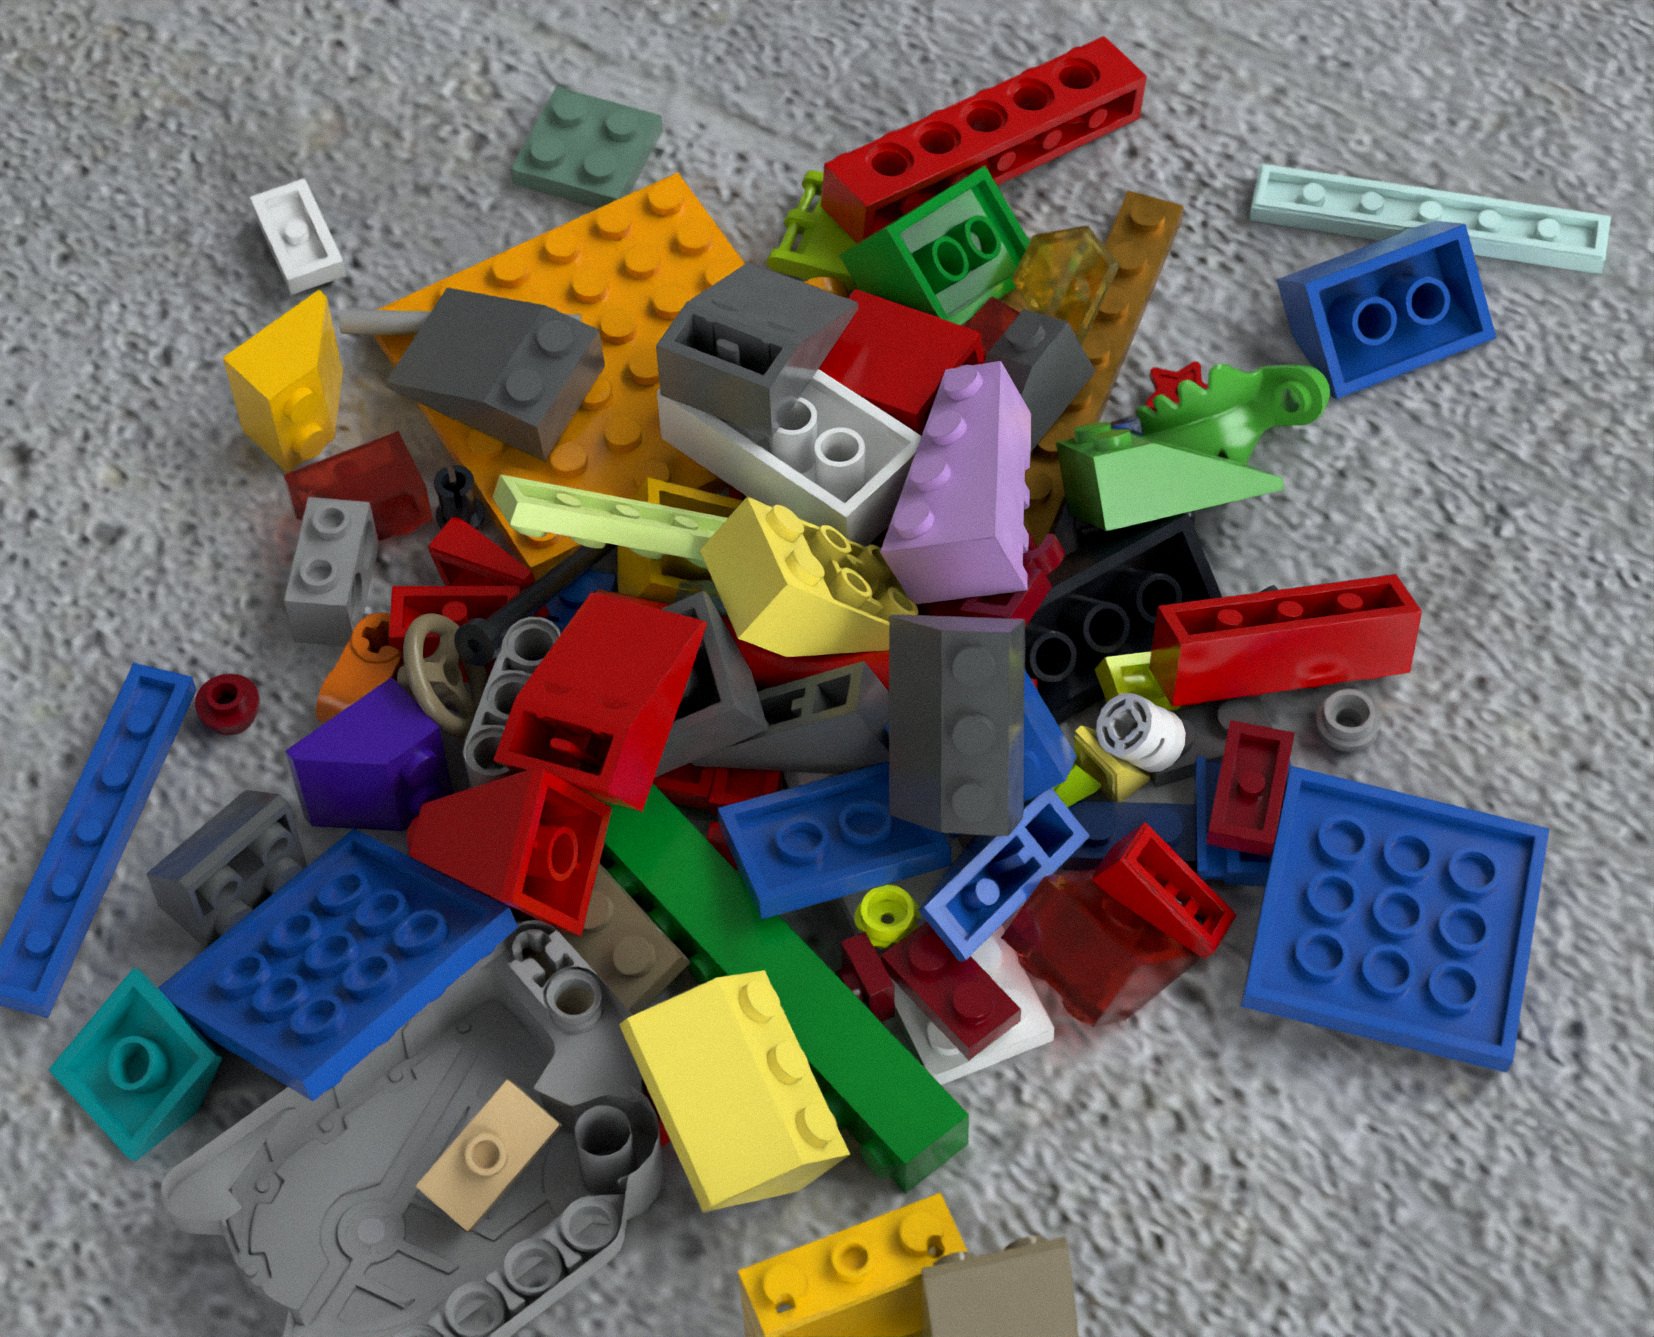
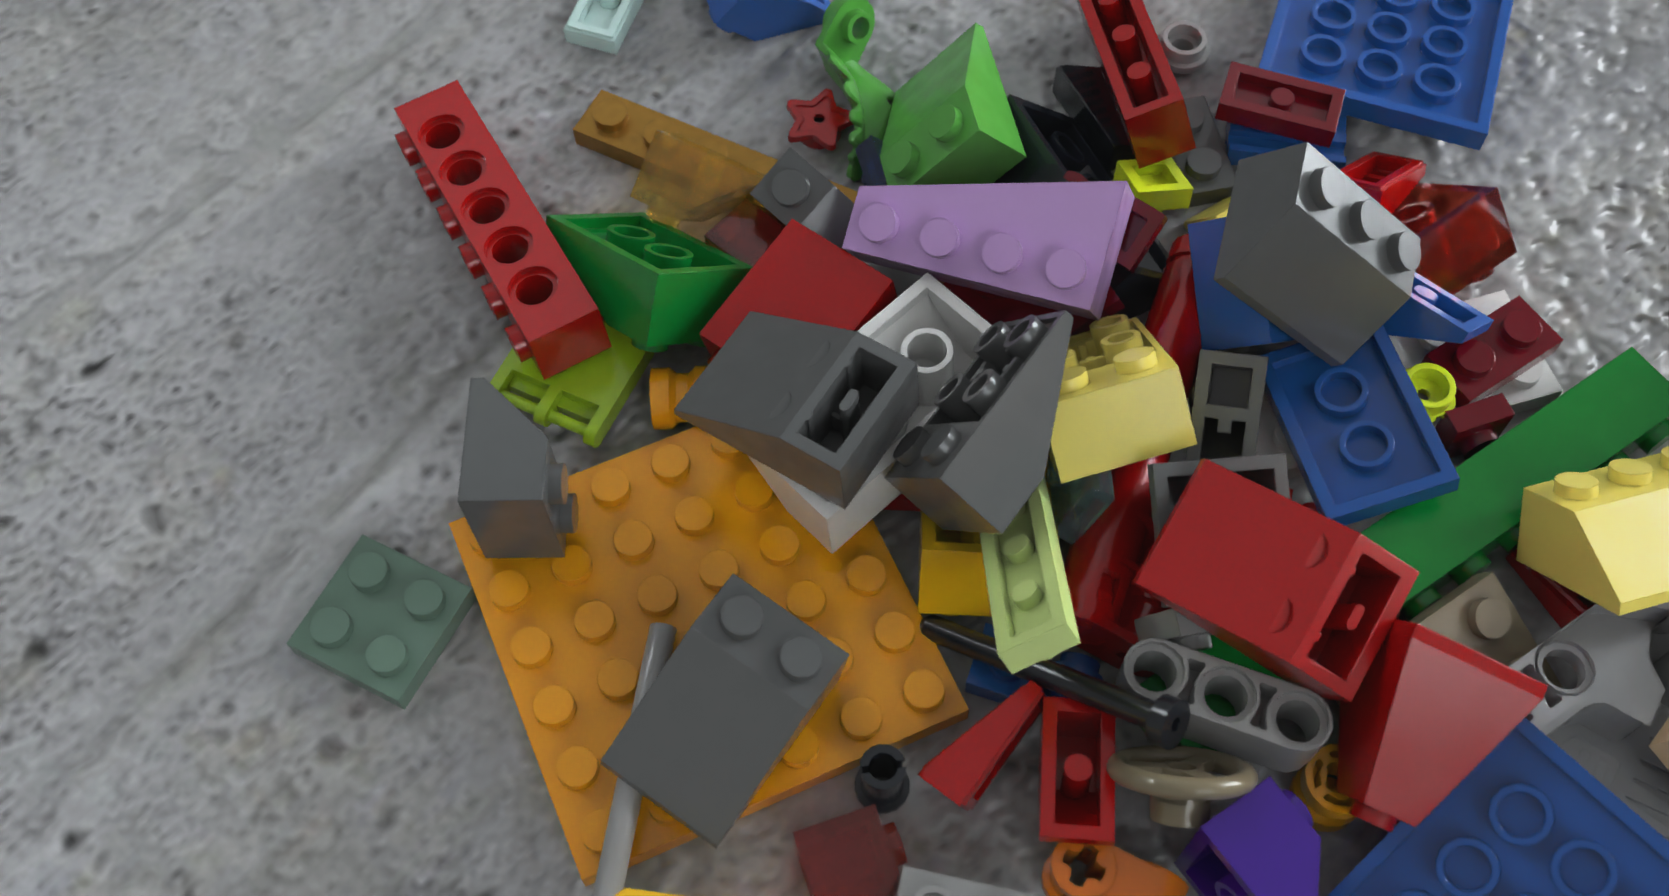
camera: 85 degrees left, 5 degrees up
(694, 176) = (511, 481): none -> dark grey slope
(721, 464) = (990, 430): none -> dark grey slope
(1140, 732) = (1211, 170): white wheel -> none

